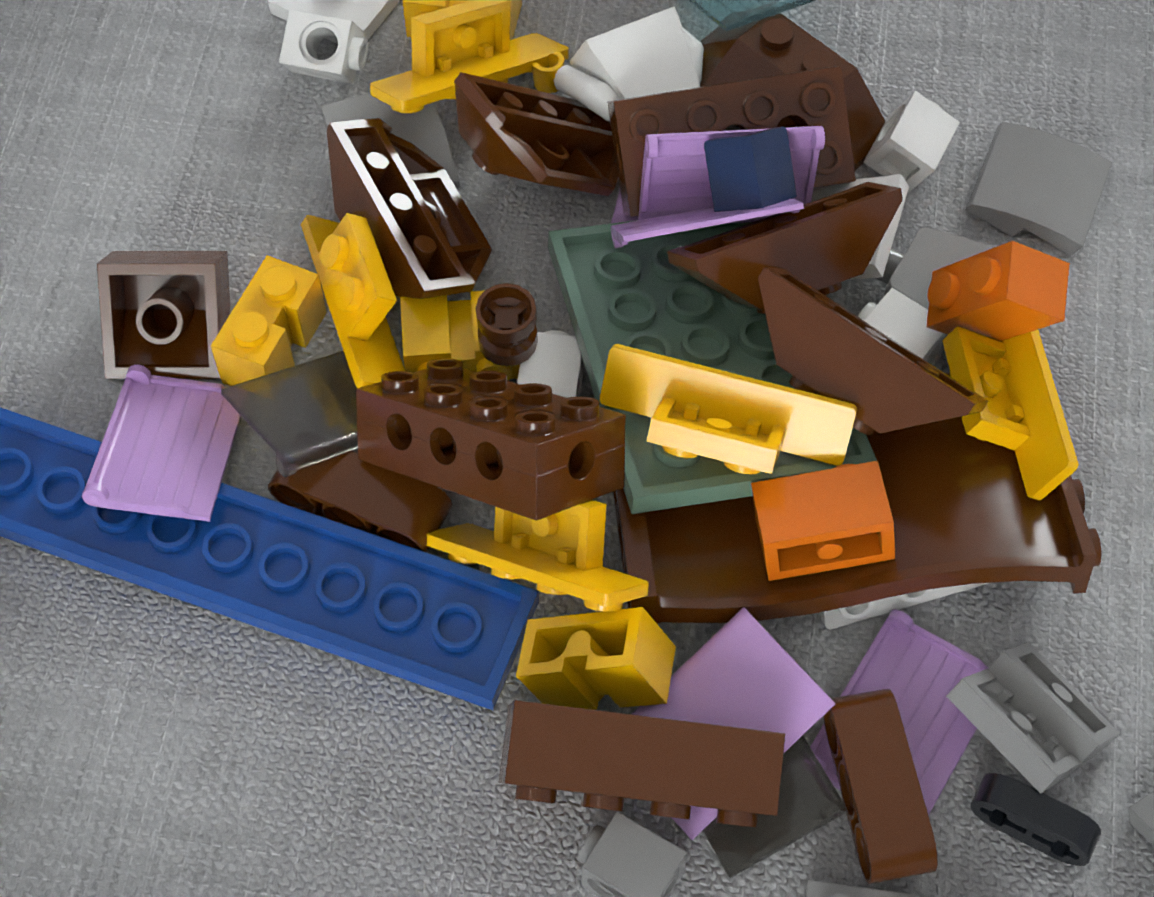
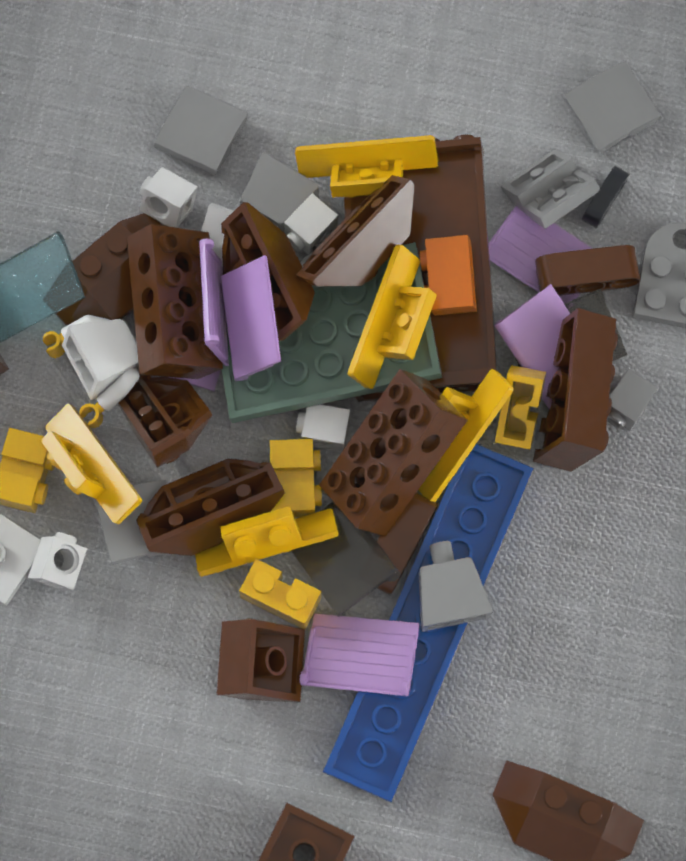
camera: 90 degrees left, 15 degrees up
(260, 558) = (450, 590): none -> light grey torso
(506, 324) = (309, 436): reddish brown wheel -> none
(750, 170) = (235, 286): dark blue panel -> none
(999, 292) = (317, 160): orange brick -> none

